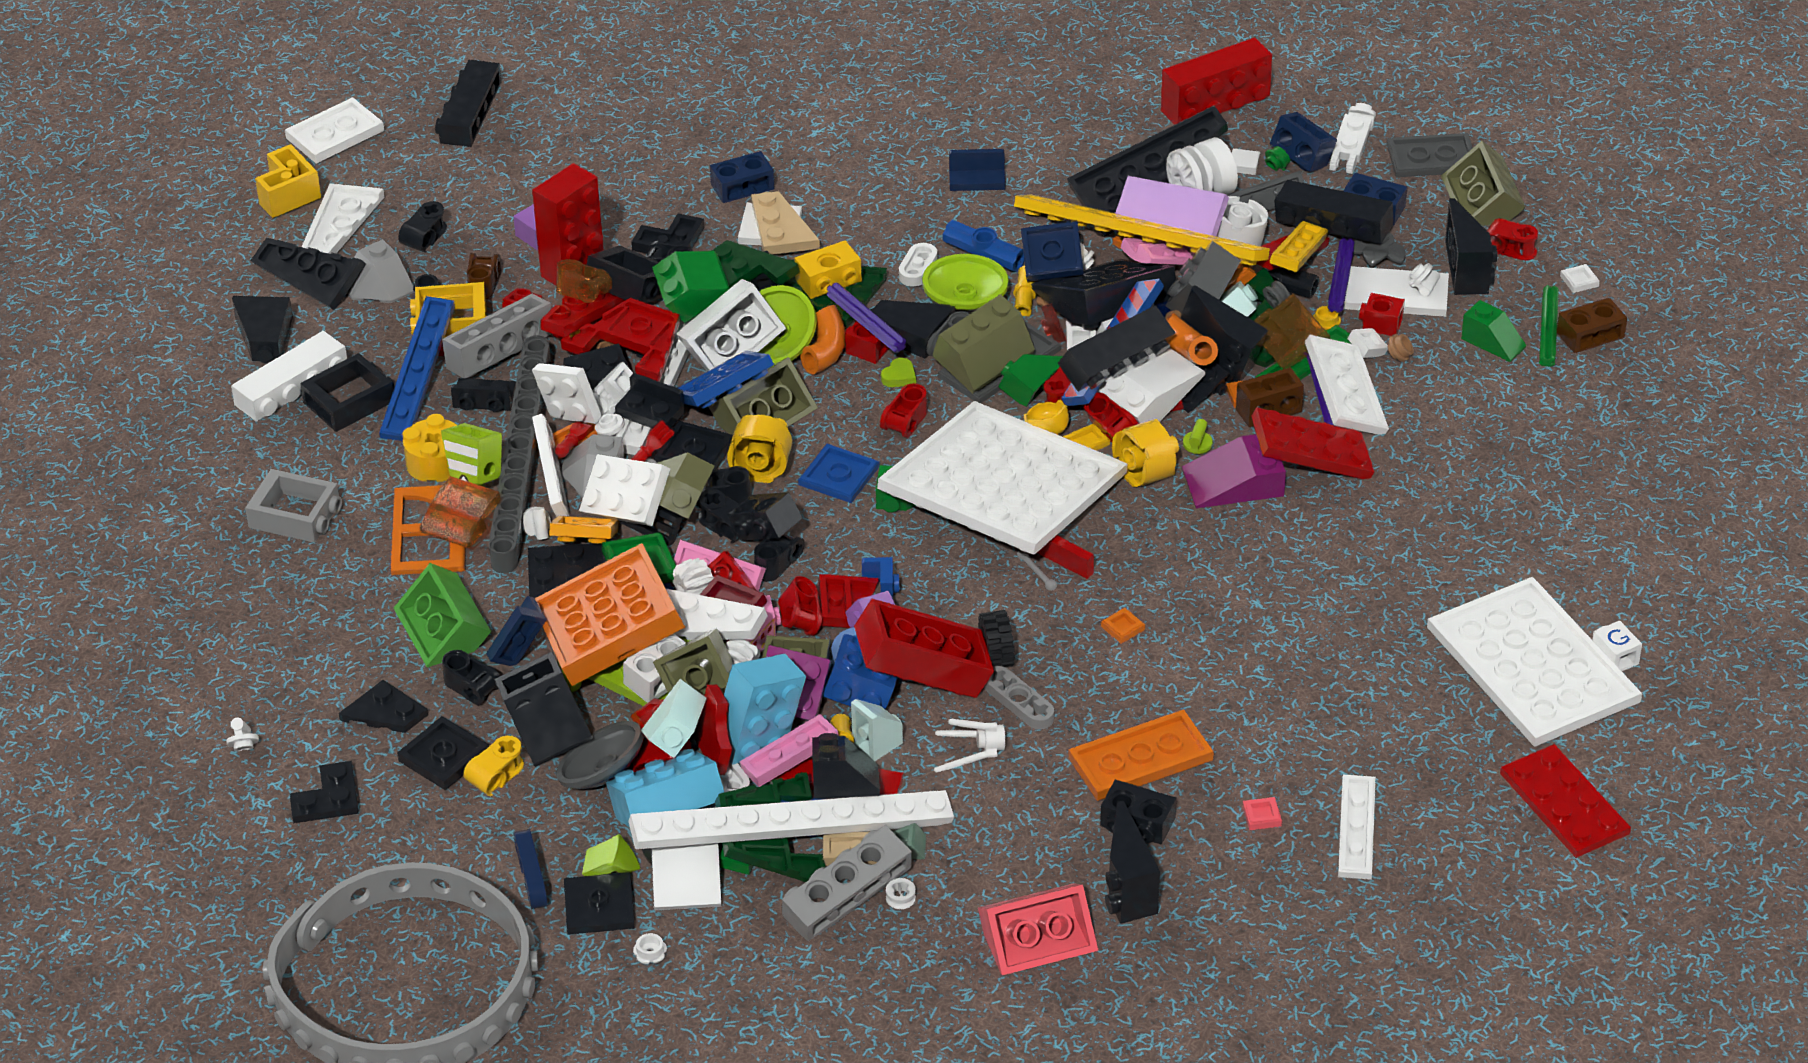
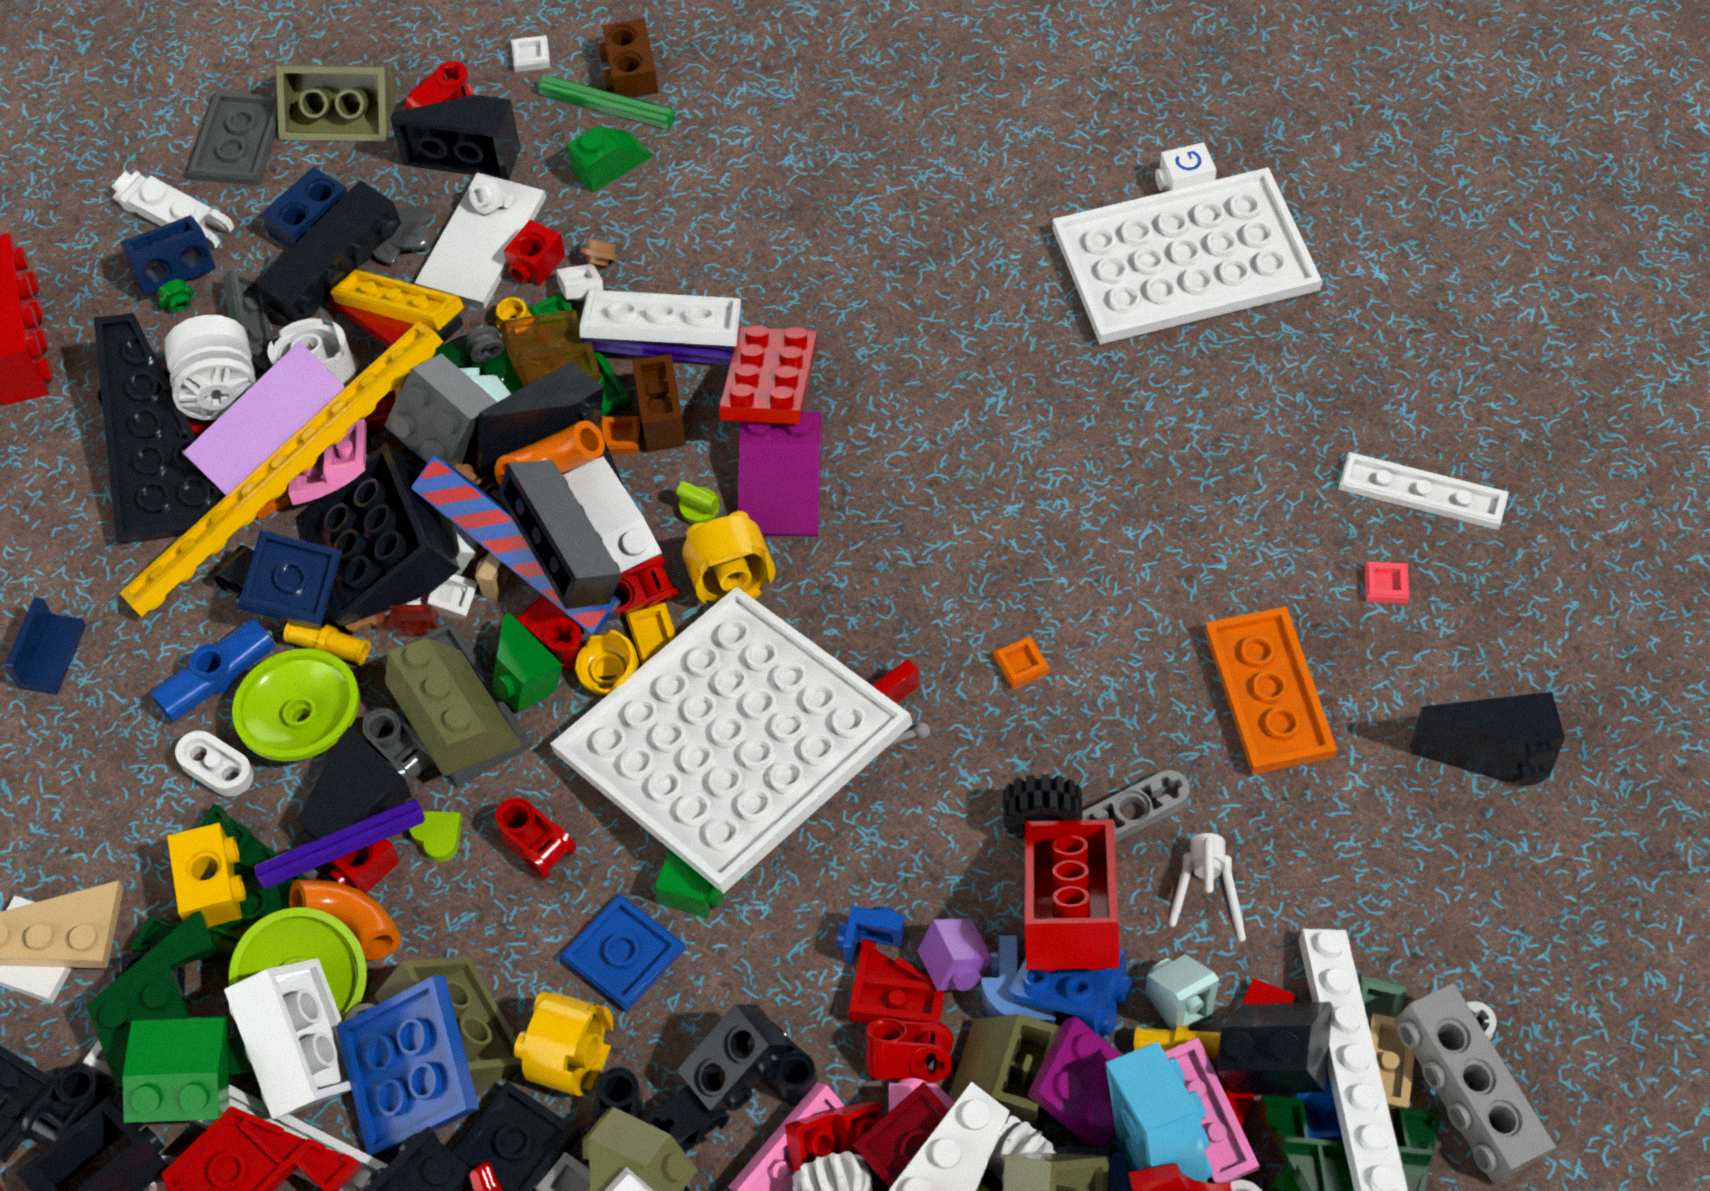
camera: 75 degrees left, 15 degrees up
(1038, 928) = (1561, 867): coral slope -> none
(1150, 810) = (1372, 710): black brick -> none
(1246, 161) = (156, 329): white tile -> none
(1341, 275) = (449, 276): dark purple axle -> none
(1565, 800) = (1412, 282): red plate -> none

